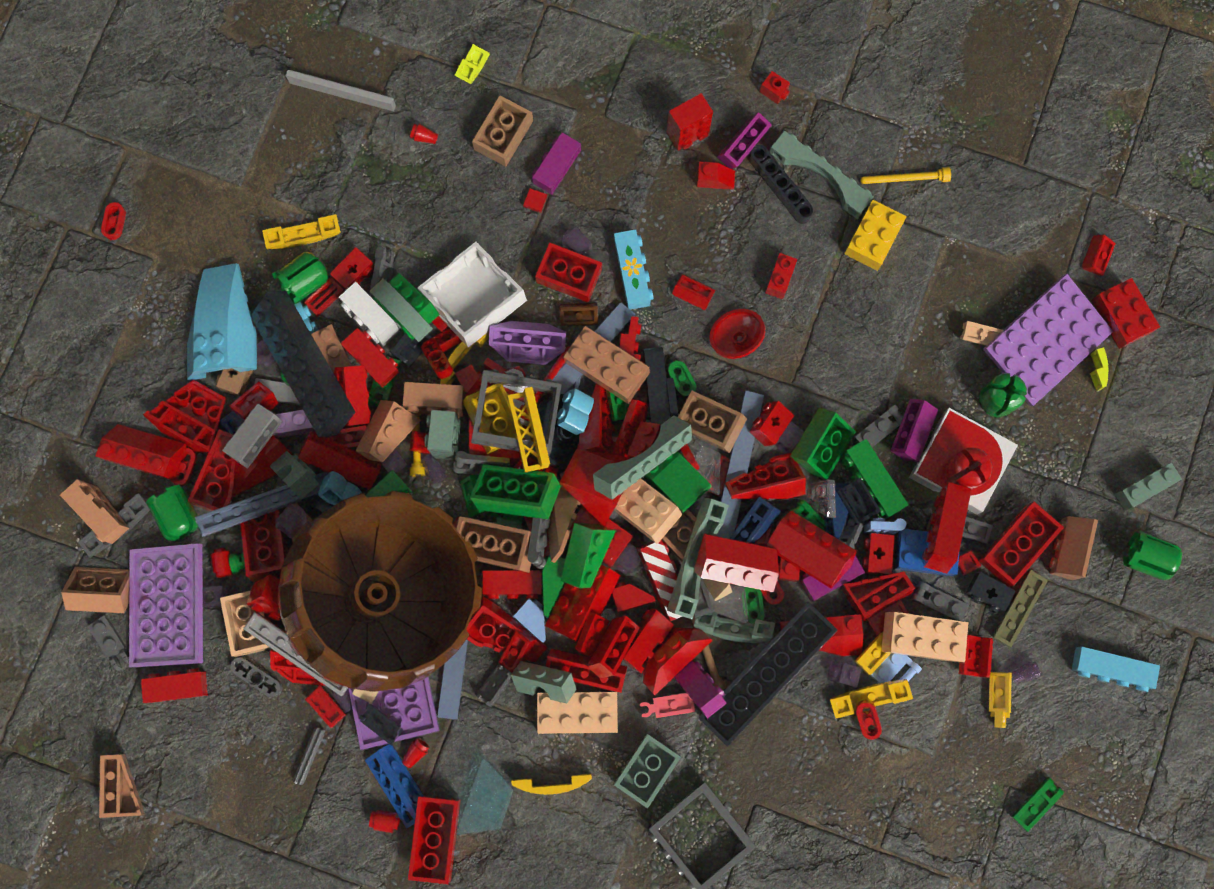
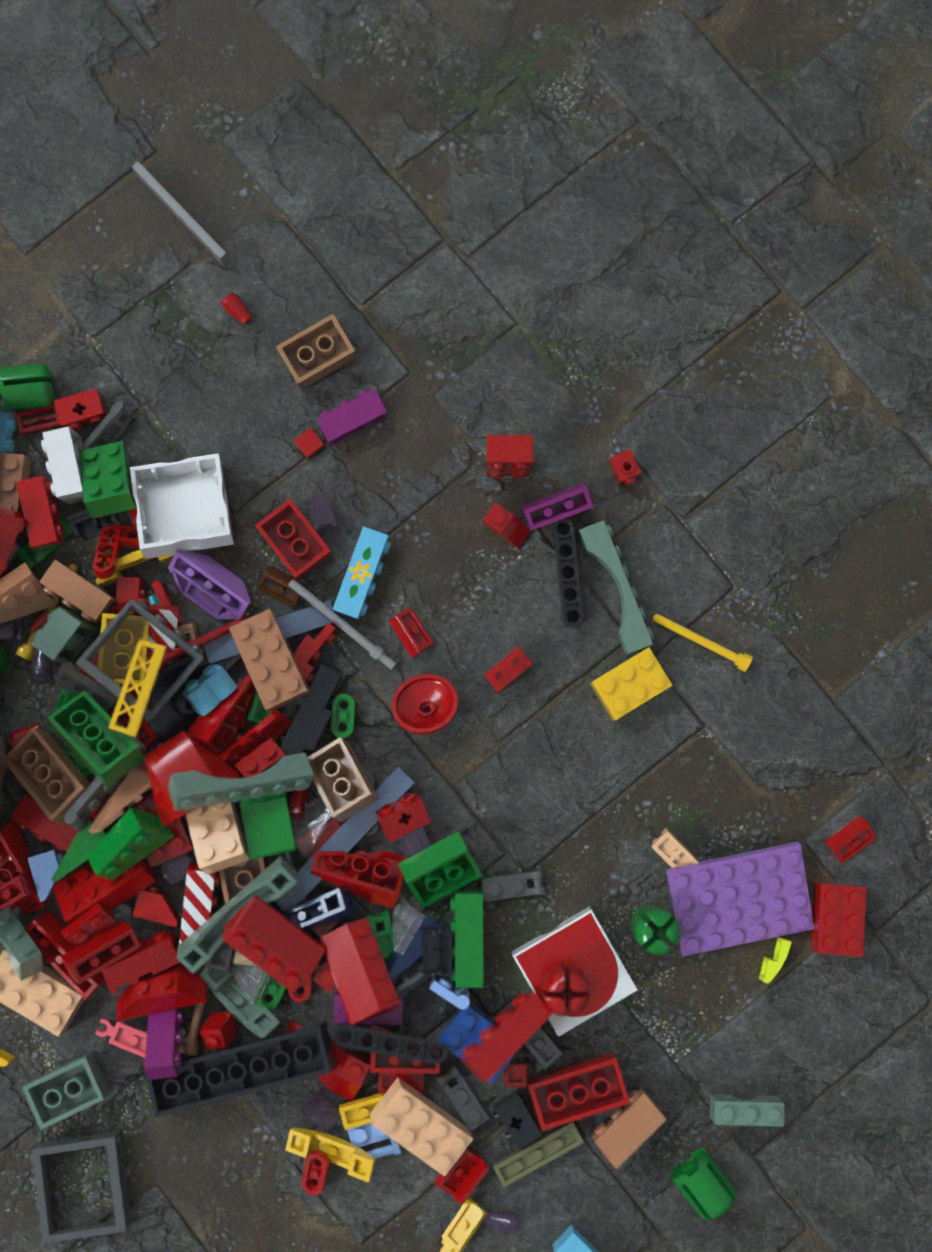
camera: 30 degrees right, 5 degrees up
(301, 234) = (53, 341): yellow slope -> none
(401, 310) = (93, 483): sand green slope -> none
(472, 65) = (330, 263): neon yellow slope -> none
(676, 319) = (375, 651): none -> light grey bar
(733, 658) = (218, 1031): none -> red brick
(873, 578) = (379, 1044): none -> black beam
(885, 546) = (427, 1026): red brick -> none
(914, 430) = (543, 910): magenta brick -> none

